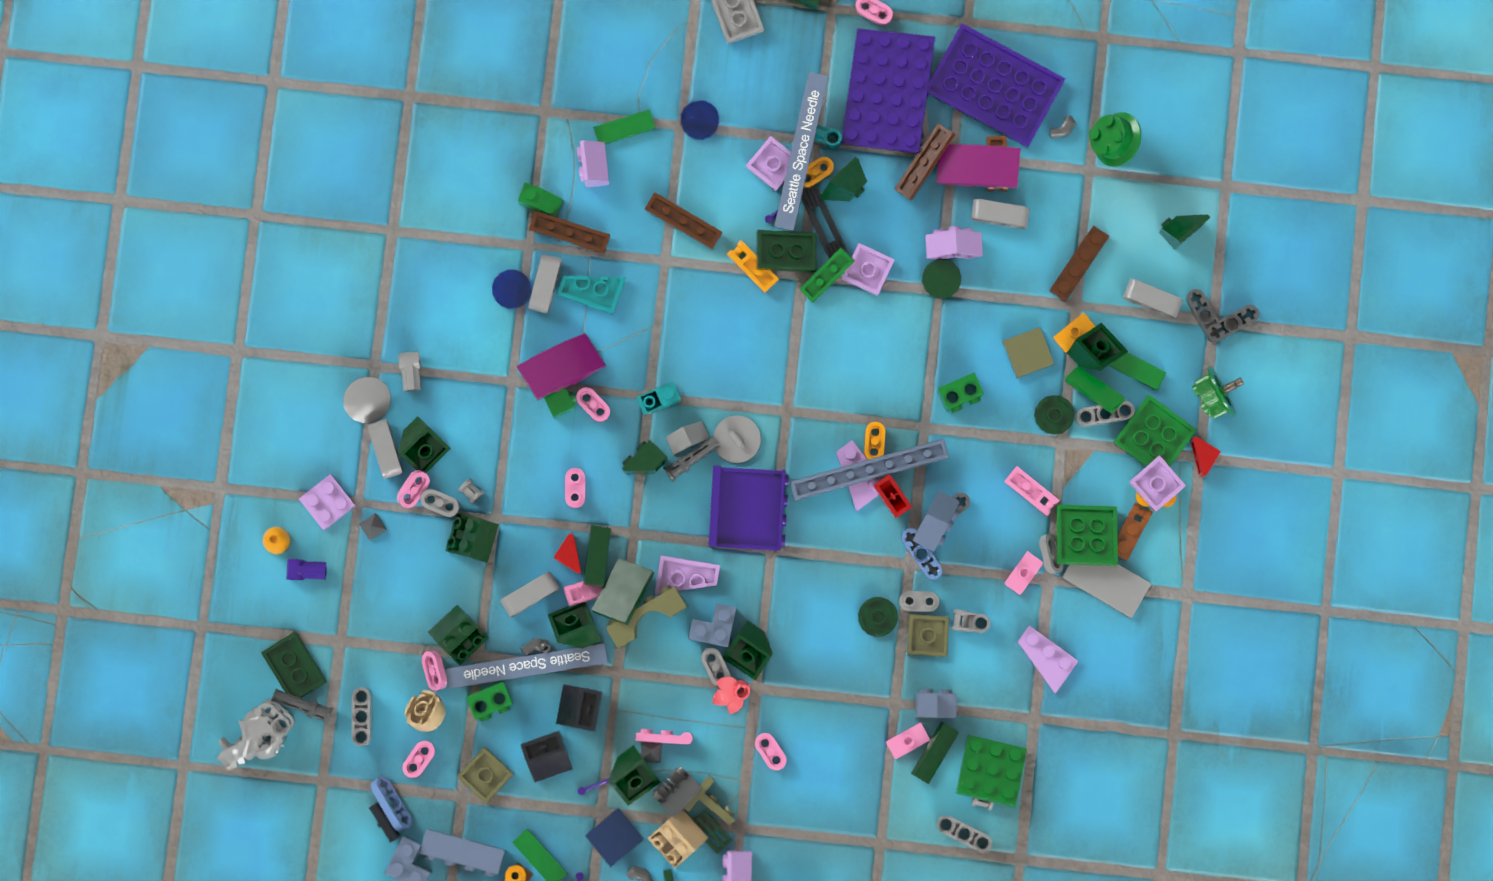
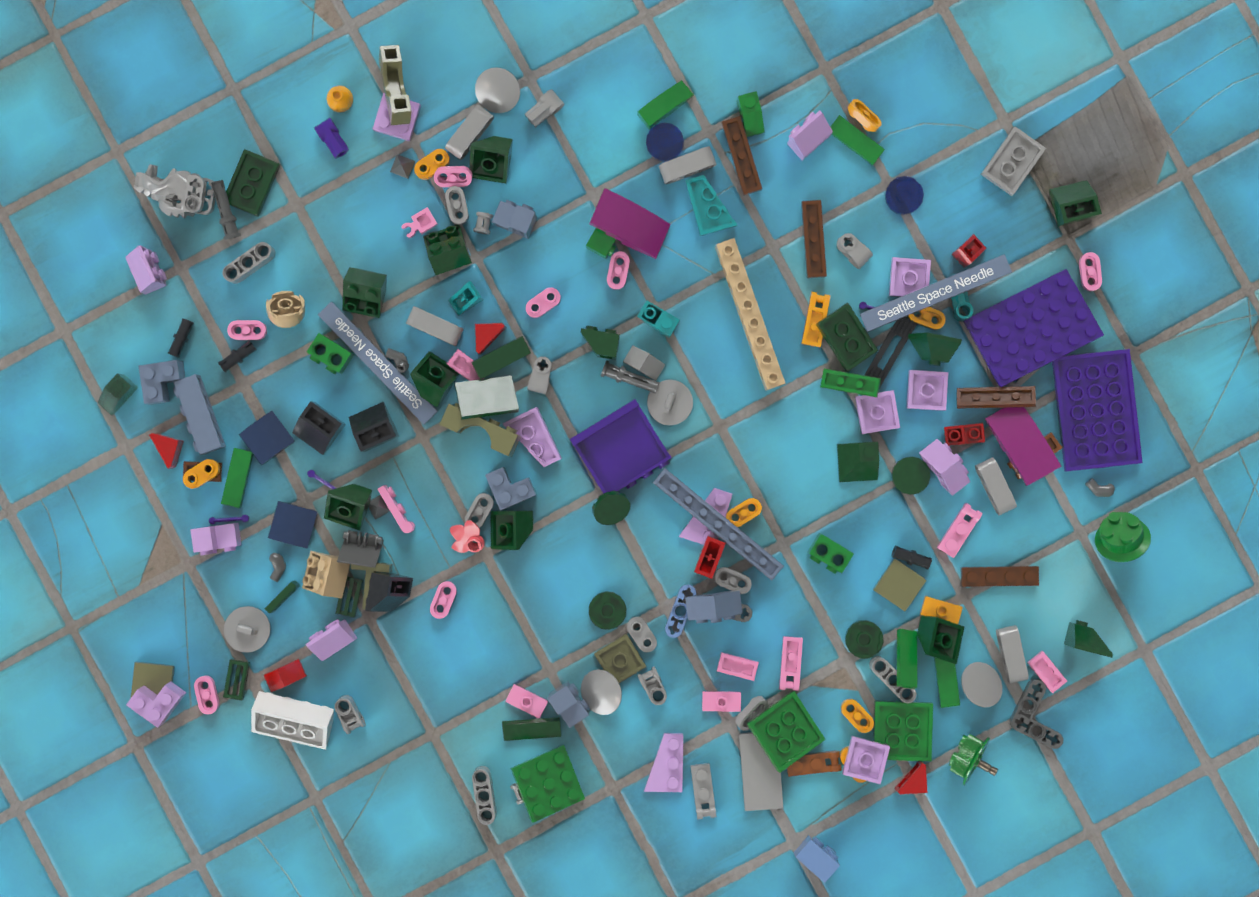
camera: 55 degrees right, 5 degrees up
(286, 478) = (392, 77): none -> olive arch
(305, 811) = (145, 270): none -> lavender slope
(389, 500) = (431, 164): none -> light orange plate
(398, 805) = (208, 323): medium blue beam -> none
(433, 541) = (422, 221): none -> bright pink plate
(434, 670) = (323, 293): bright pink plate -> none
(435, 783) = (237, 356): none -> black pin
(480, 266) = (664, 104): none -> green slope
(485, 775) = (271, 390): olive tile -> none
(488, 461) = (515, 218): none -> sand blue brick
(523, 807) = (266, 438): none -> dark blue slope
(525, 551) = (465, 298): none -> teal slope
(608, 106) = (864, 115): none -> light orange plate
(639, 535) = (540, 379): none -> light grey piece
(709, 319) = (749, 314): none -> tan brick
(718, 194) = (855, 252): none -> light grey piece
(730, 793) = (387, 591): none -> black slope
(785, 98) = (969, 251): none -> red slope
(792, 551) = (611, 508): none -> dark green tile
(878, 215) = (927, 390): none -> lavender plate
(898, 314) = (858, 461): none -> dark green slope
(925, 491) = (732, 580): none -> light grey plate
(938, 209) = (964, 434): none -> red slope
(944, 669) = (601, 692): none -> light grey shield
(1002, 538) = (737, 666): none -> bright pink plate
(1011, 326) = (911, 557): none -> black pin
(1017, 271) = (959, 530): none -> bright pink plate
(1089, 642) = (703, 790): none -> light grey plate
(1114, 465) = (856, 715): none -> light orange plate
(1160, 342) = (981, 684): none -> light grey shield
(1188, 280) = (1047, 671): none -> bright pink plate
(1212, 583) = (817, 858): none -> medium blue brick

